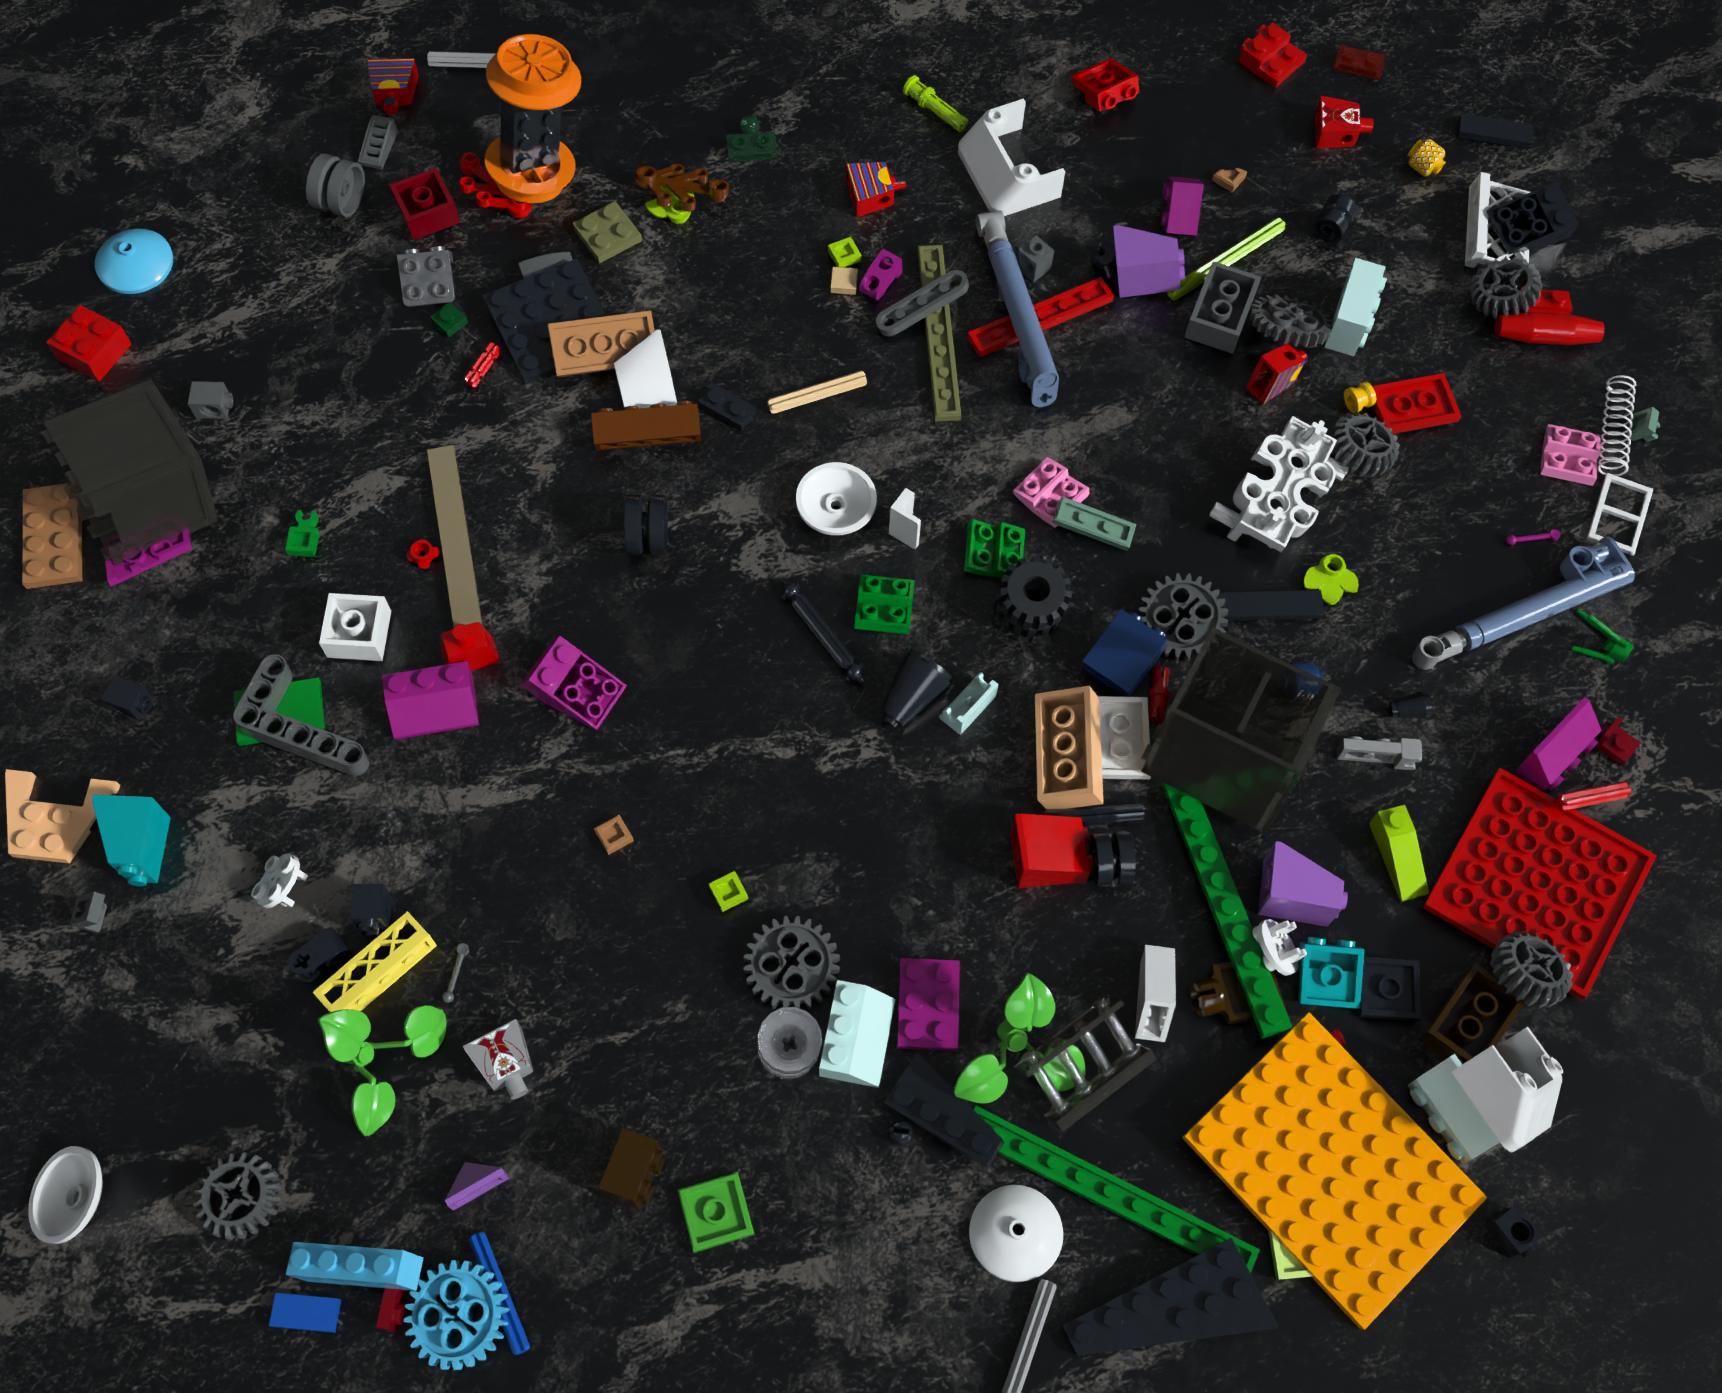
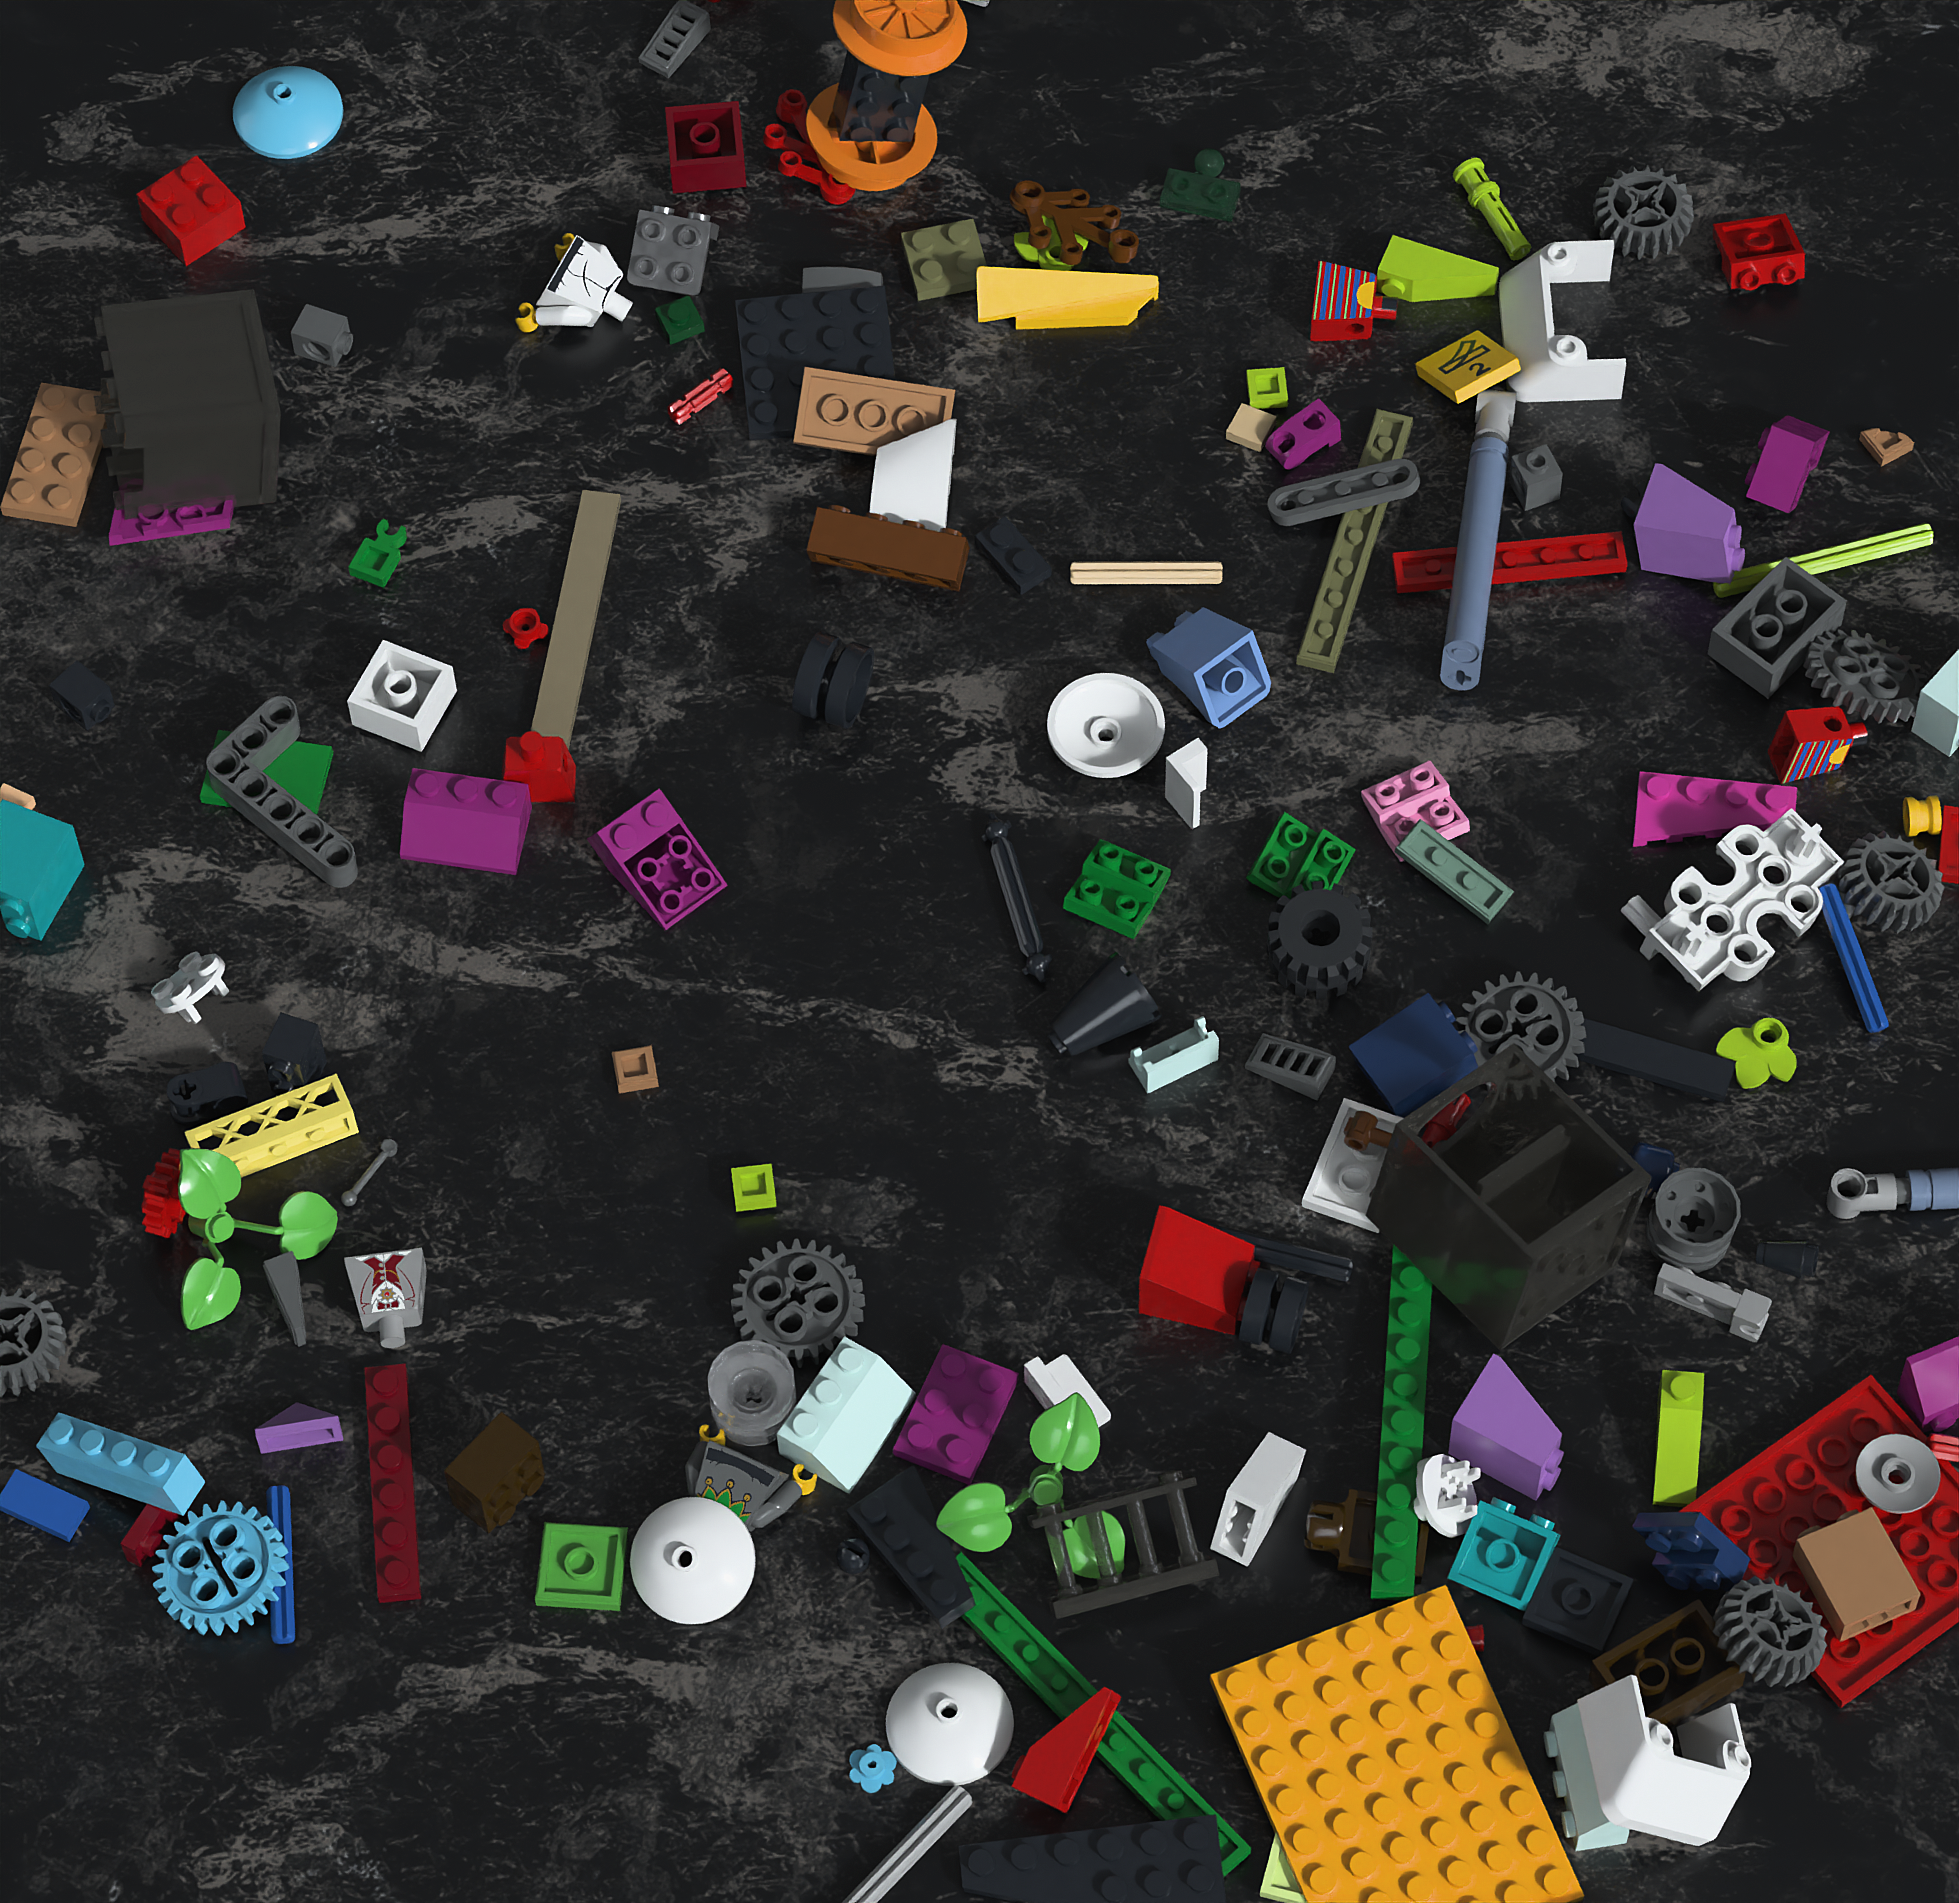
camera: 25 degrees right, 5 degrees down
(312, 1045) = (161, 1196): none -> red gear
(335, 185) = (593, 86): dark grey wheel -> none
(374, 318) = (578, 289): none -> white torso
(425, 1077) = (284, 1282): none -> dark grey slope
(557, 1200) = (392, 1483): none -> dark red plate
(691, 233) = (1061, 297): none -> yellow wedge
(797, 1160) = (719, 1567): none -> white dish
(804, 1115) = (742, 1483): none -> dark grey torso
(885, 436) = (1213, 664): none -> medium blue hips
(917, 153) = (1428, 274): none -> lime slope
(963, 203) = (1467, 366): none -> yellow tile
(970, 1293) = (872, 1778): none -> medium azure plant
(996, 964) = (1058, 1381): none -> white panel
(1027, 78) = (1641, 202): none -> dark grey gear
(1056, 675) = (1309, 1057): none -> dark grey slope
(1068, 748) = (1277, 1152): light nougat brick -> none
(1107, 1236) = (1062, 1757): none -> red slope
(1115, 715) = (1362, 1130): none -> reddish brown bar
(1215, 436) = (1697, 806): none -> dark pink wing
(1356, 704) = (1698, 1200): none -> dark grey wheel
(1364, 502) = (1853, 959): none -> blue axle
(1455, 931) = (1692, 1551): none -> dark blue plate
(1559, 907) = (1855, 1573): none -> medium nougat brick
(1563, 824) = (1901, 1457): none -> light grey dish

